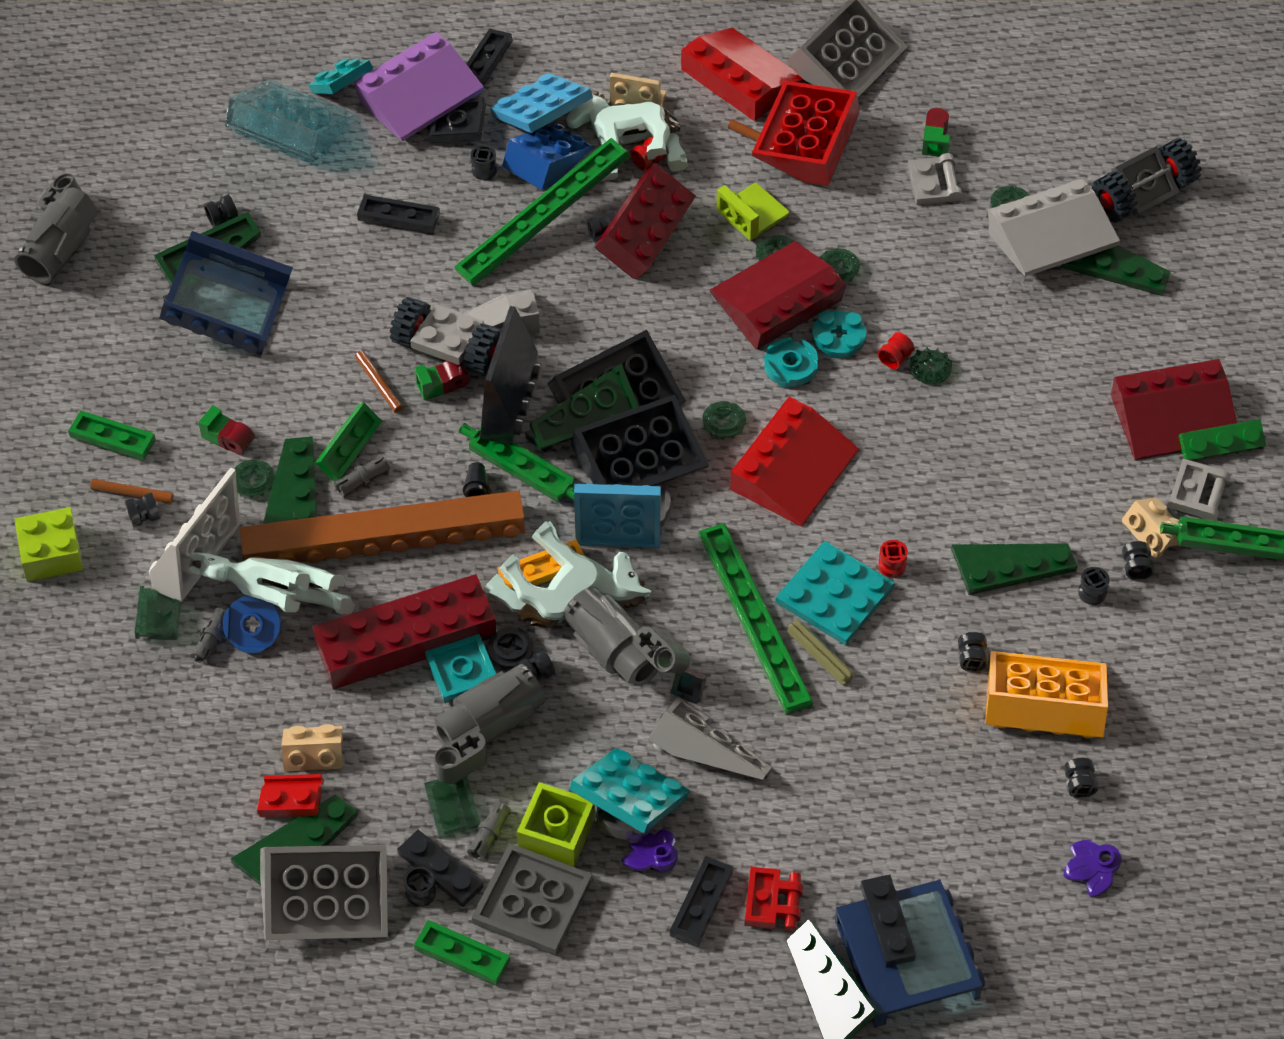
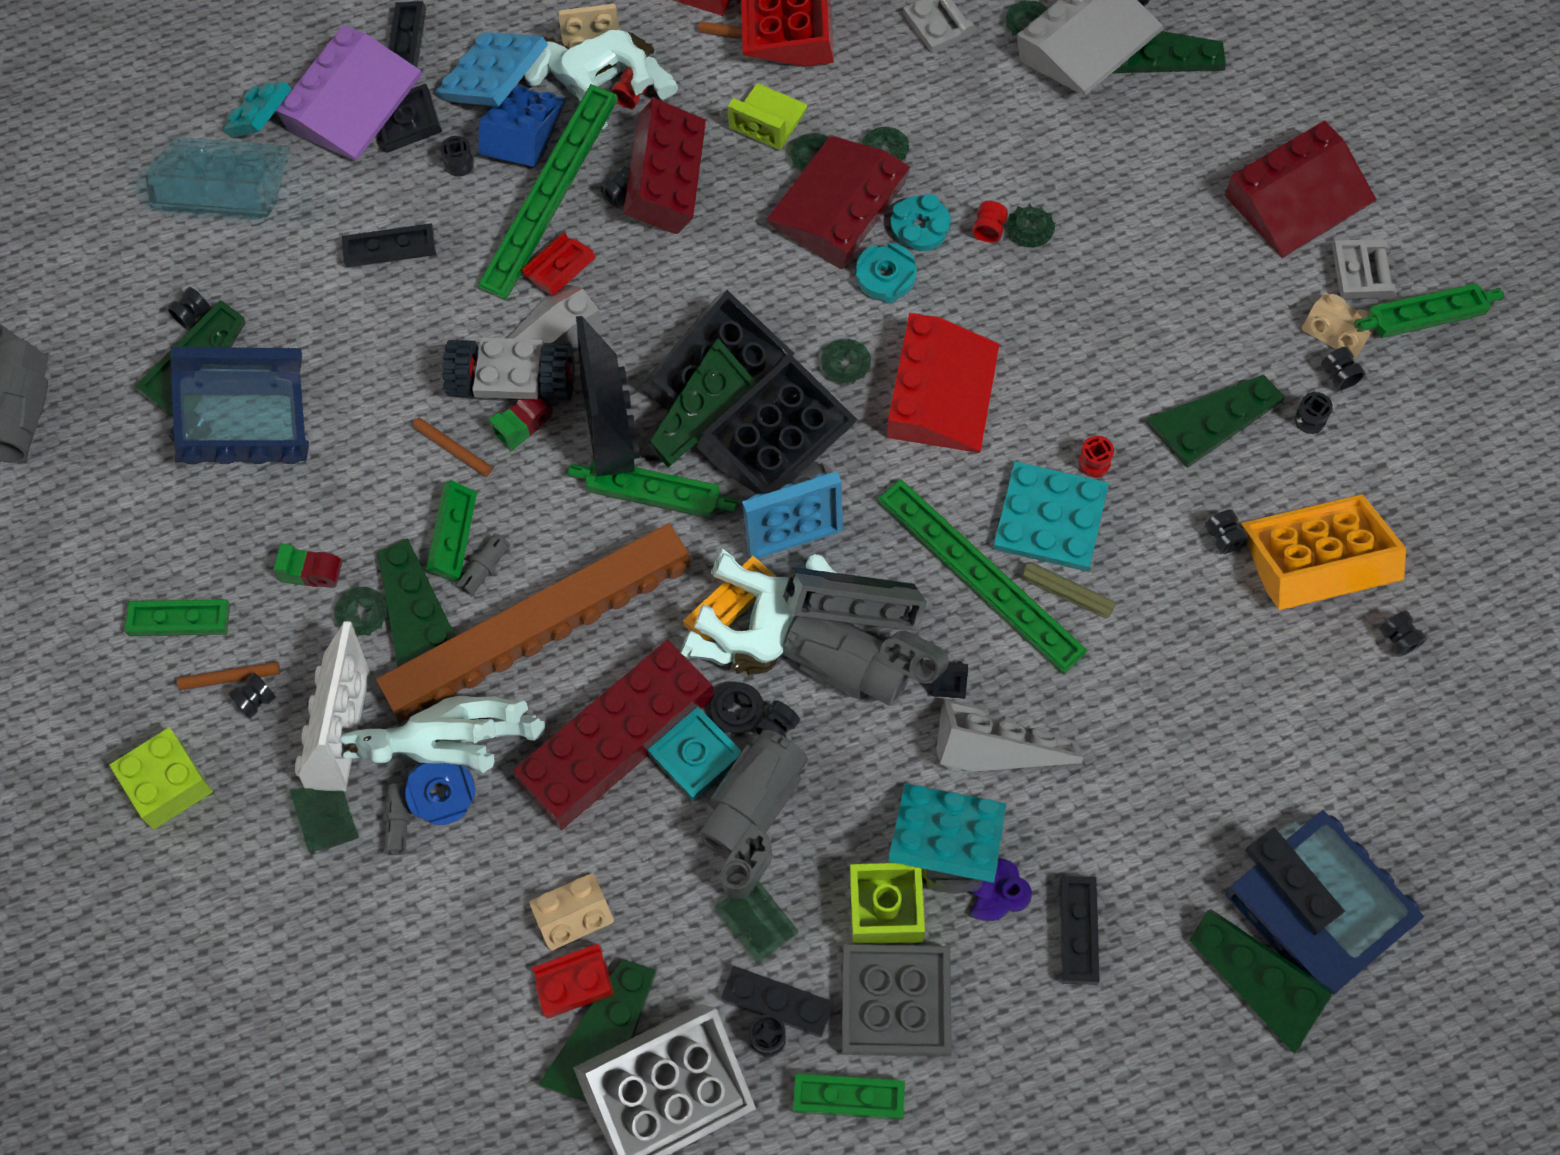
camera: 20 degrees left, 10 degrees up
(476, 481) = (613, 528): black cone -> none
(489, 831) = (811, 936): dark grey pin -> none
(526, 270) = (558, 264): none -> red plate
(636, 593) = (854, 599): none -> dark grey piece
(763, 899) = (1143, 902): red plate -> none
(1089, 868) = (1456, 731): dark purple plate -> none
(1222, 440) = (1361, 206): green plate -> none

